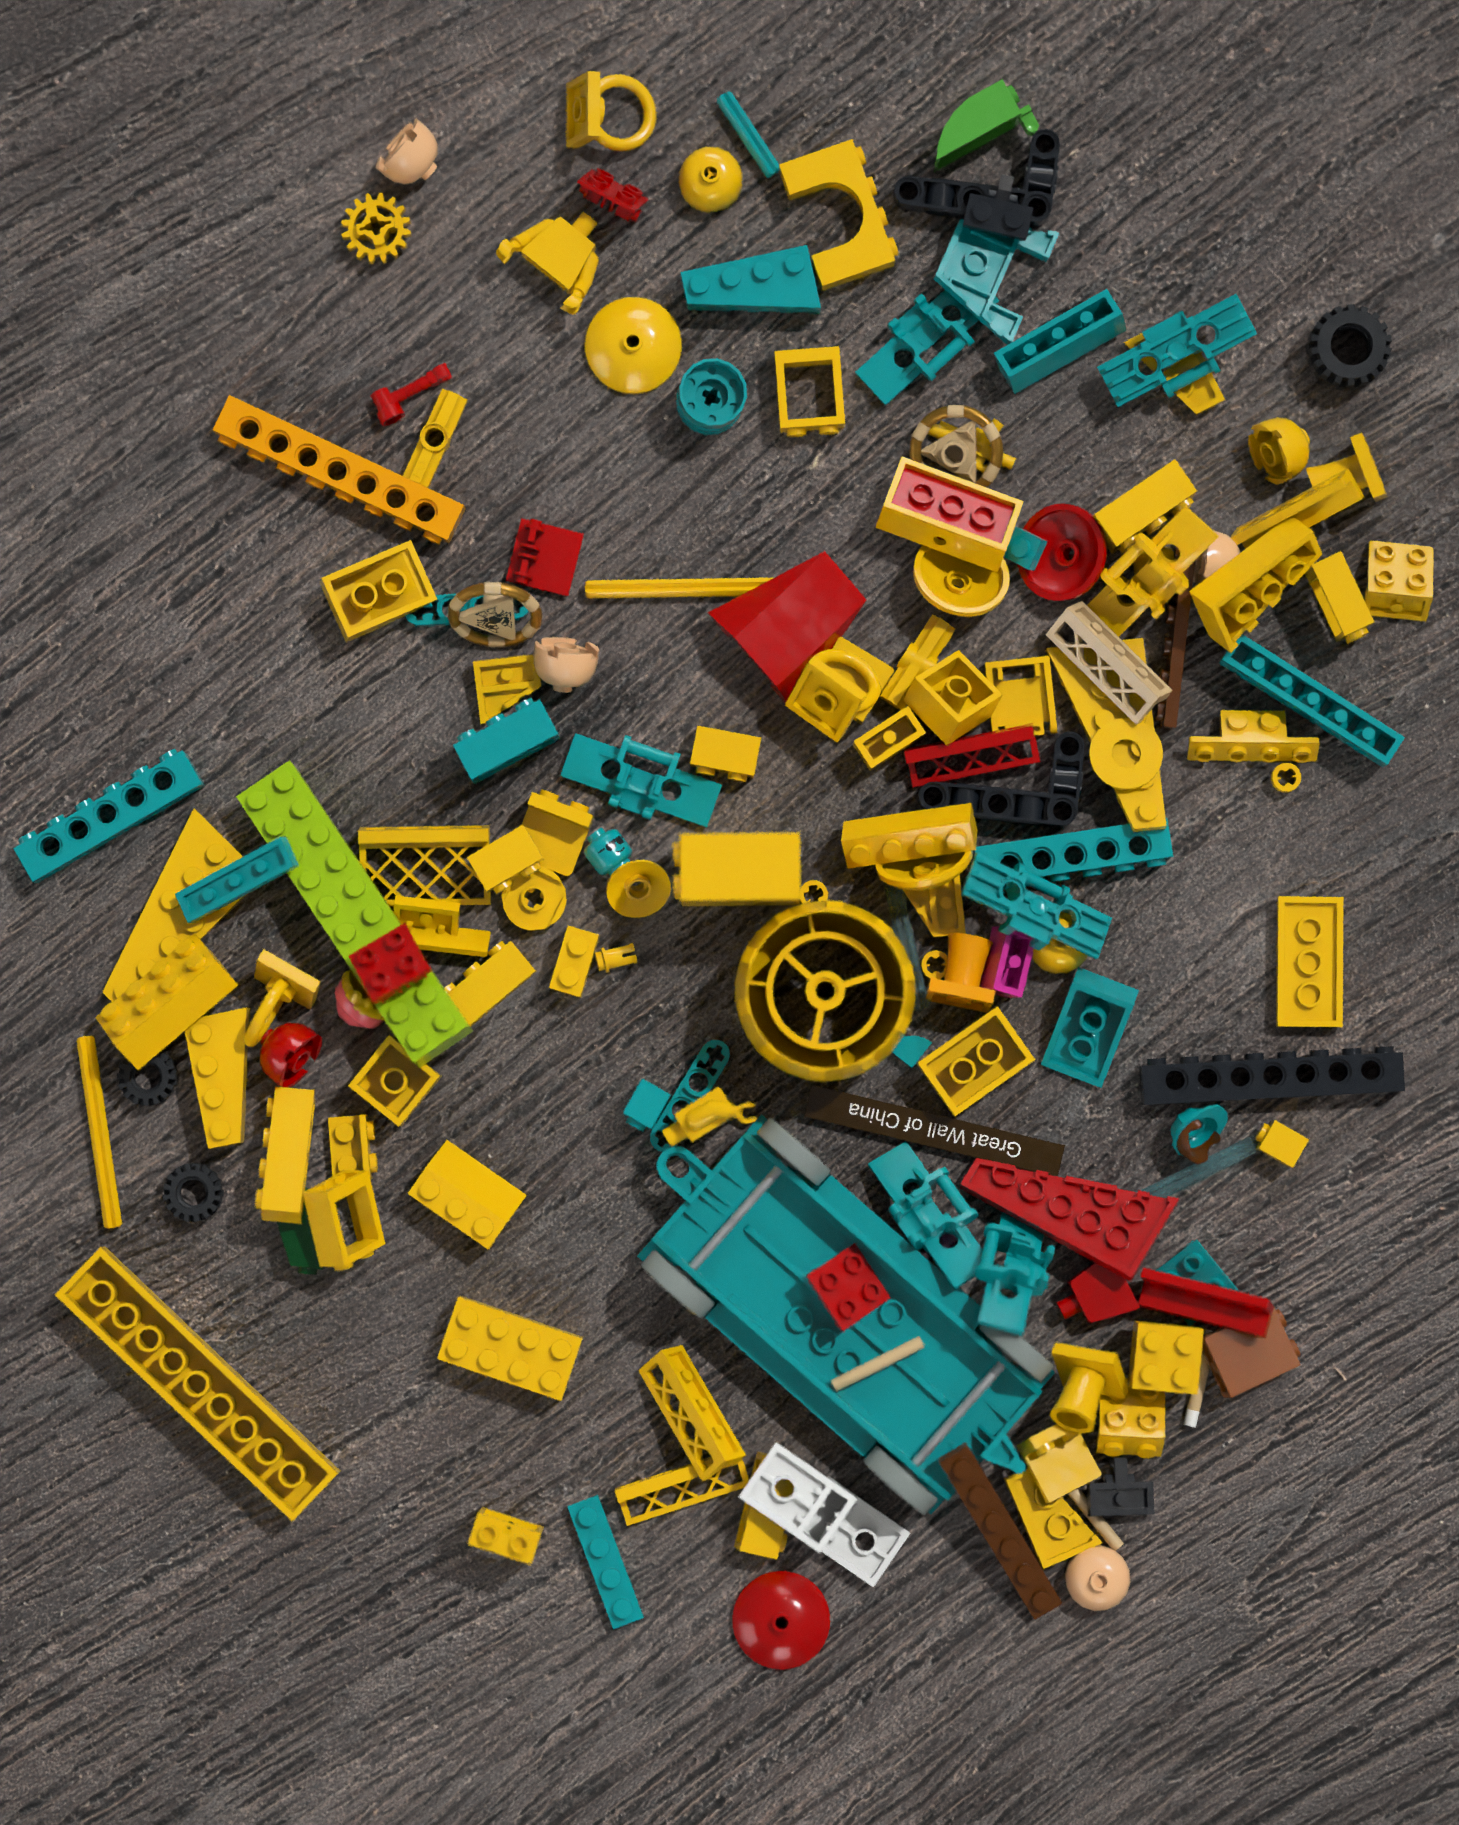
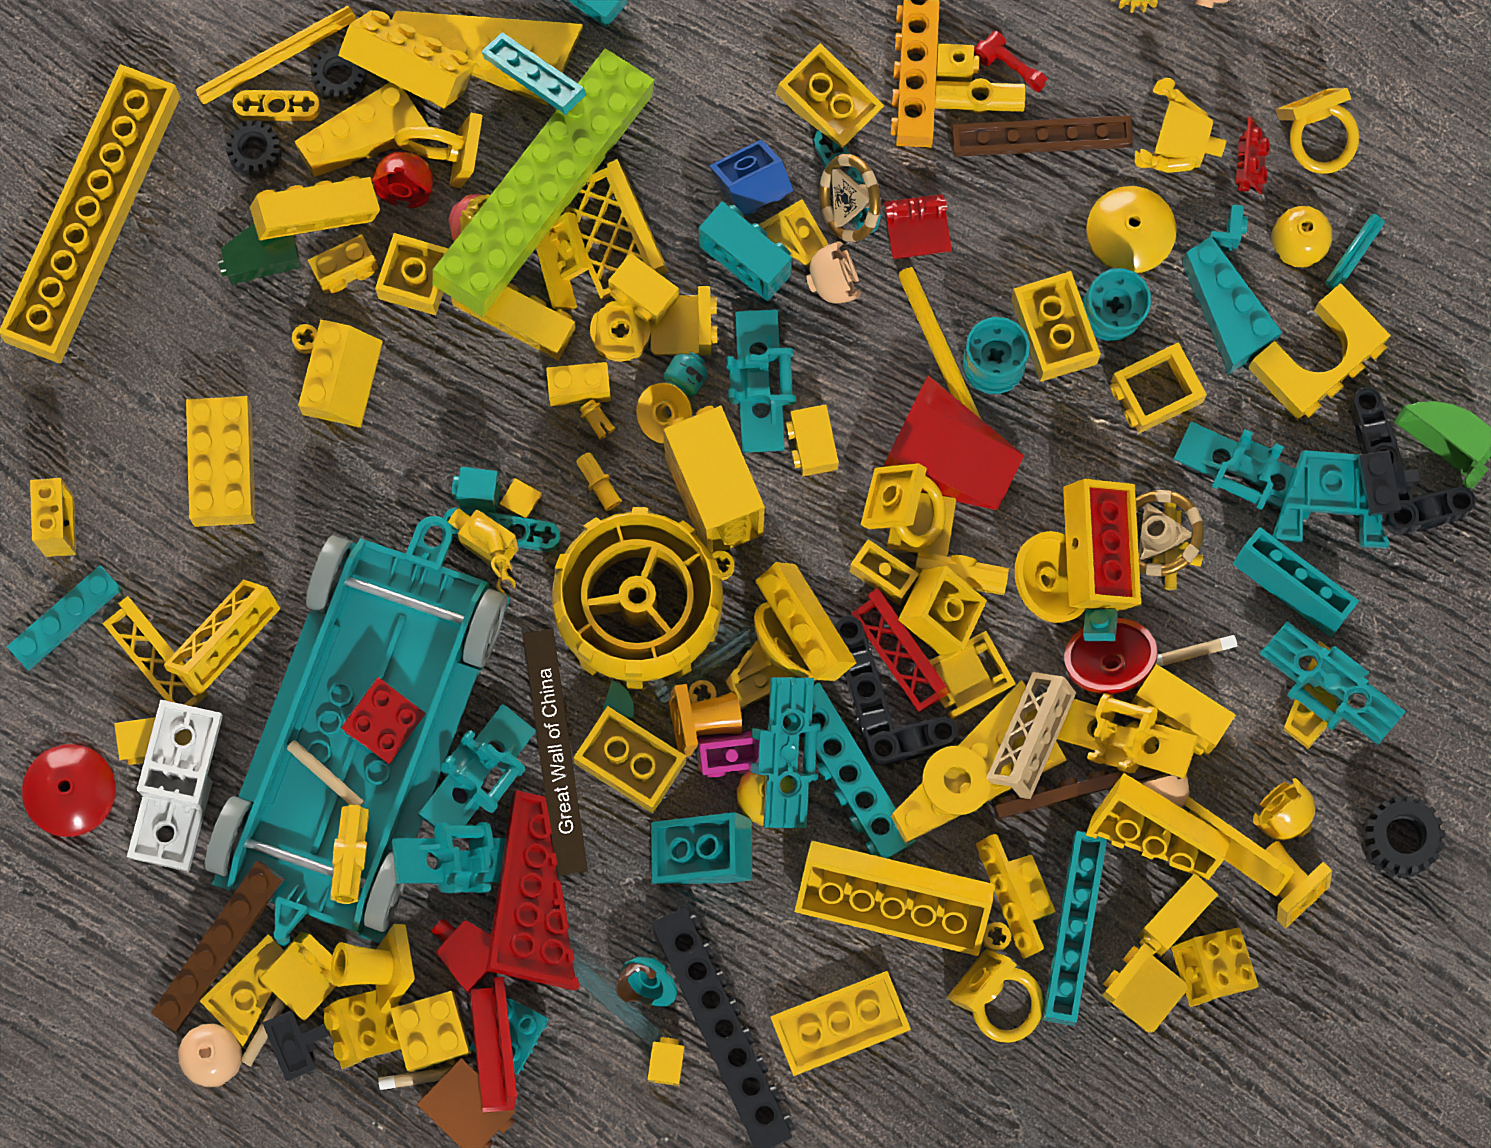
camera: 65 degrees right, 10 degrees down
(141, 1156) = (255, 114): none -> yellow beam
(326, 1225) = (264, 256): yellow window -> none
(390, 964) = (509, 216): red hinge -> none
(391, 447) = (956, 63): none -> yellow brick
(404, 1215) = (303, 330): none -> yellow bush
(427, 703) = (752, 177): none -> blue slope
(501, 393) = (1042, 135): none -> reddish brown plate
(666, 1065) = (520, 499): none -> yellow tile
(676, 241) = (1236, 226): none -> teal bracket
(680, 981) = (598, 481): none -> yellow axle
(700, 525) = (999, 340): none -> teal wheel
(707, 465) = (1055, 326): none -> yellow brick
(968, 1369) = (349, 854): none -> yellow piece
(1085, 465) = (1196, 650): none -> tan bar
(1215, 860) = (895, 898): none -> yellow brick
(1329, 809) = (984, 983): none -> yellow tile
(1393, 657) = (1144, 988): none -> yellow bracket

